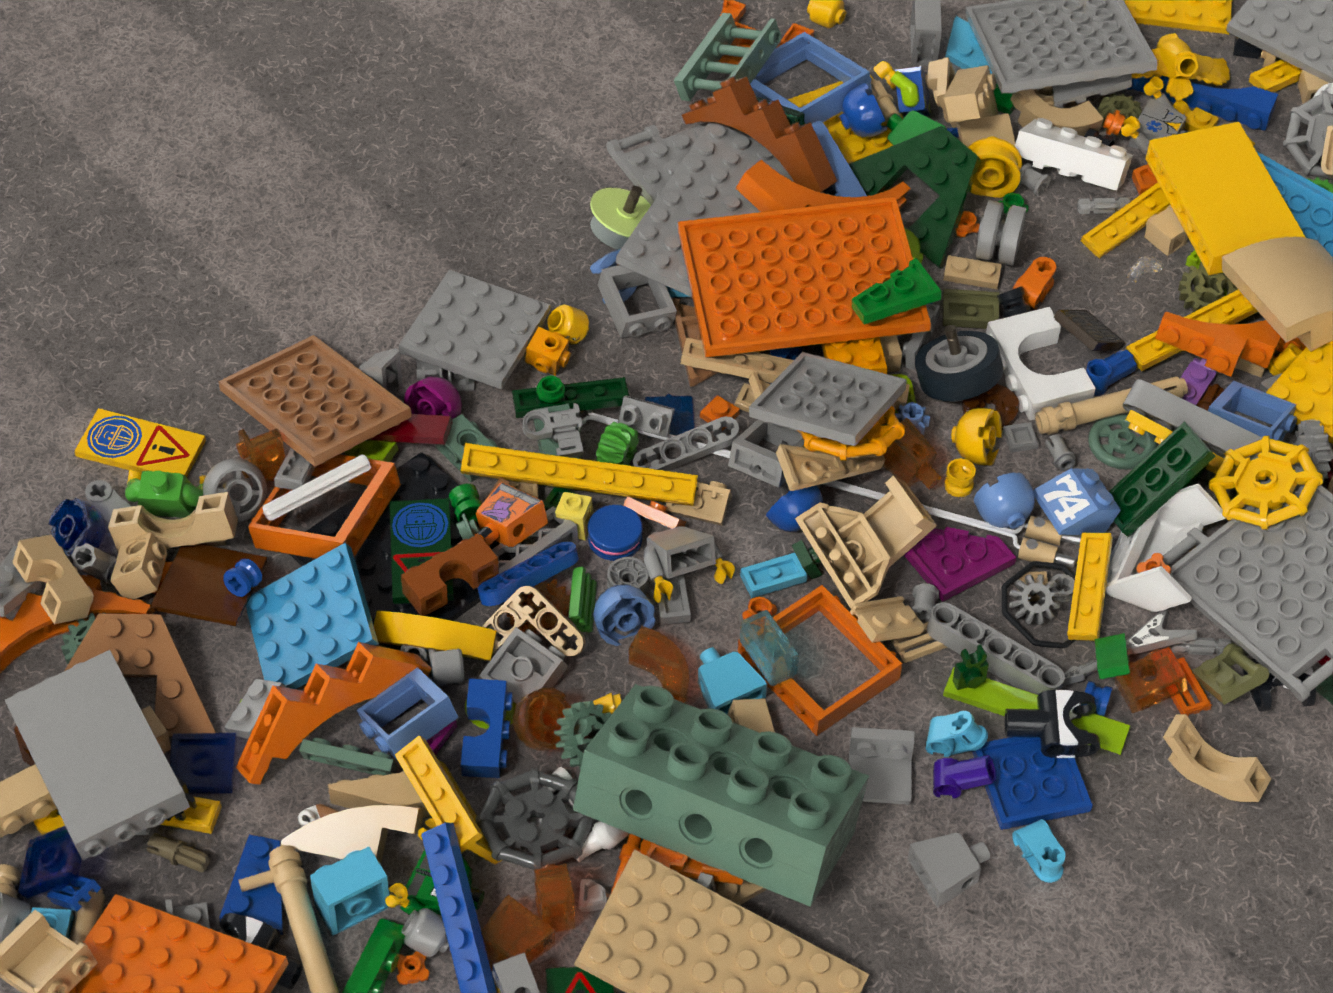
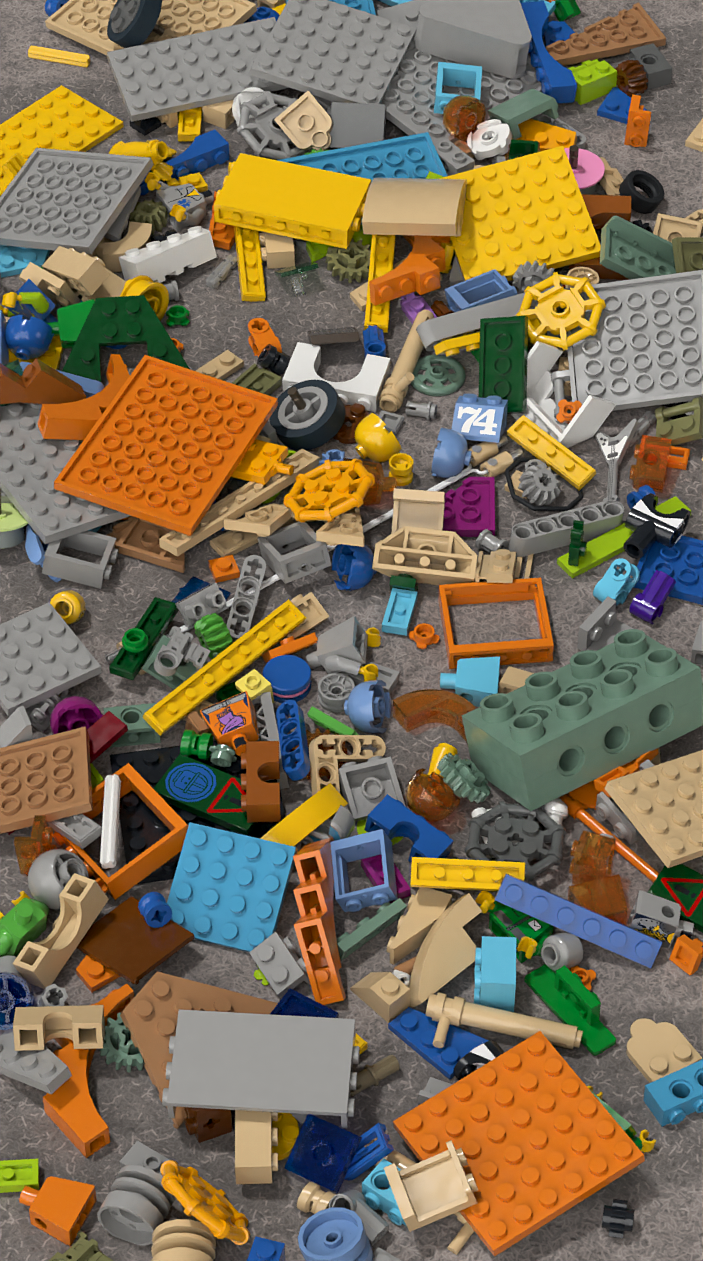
camera: 55 degrees left, 5 degrees down
(139, 566) = (82, 974): tan brick -> none
(278, 811) = (383, 994): none -> tan slope
(547, 351) = (87, 628): light orange brick -> none
(769, 647) = (482, 632): clear light blue brick -> none
(827, 398) = (299, 484): light grey plate -> none
(899, 294) = (240, 397): green wing -> none
(996, 231) = (208, 329): light grey wheel -> none
(1112, 656) = (621, 469): green tile -> none
(1114, 122) = (163, 220): orange plate -> none
(1153, 255) = (296, 269): none -> clear green piece

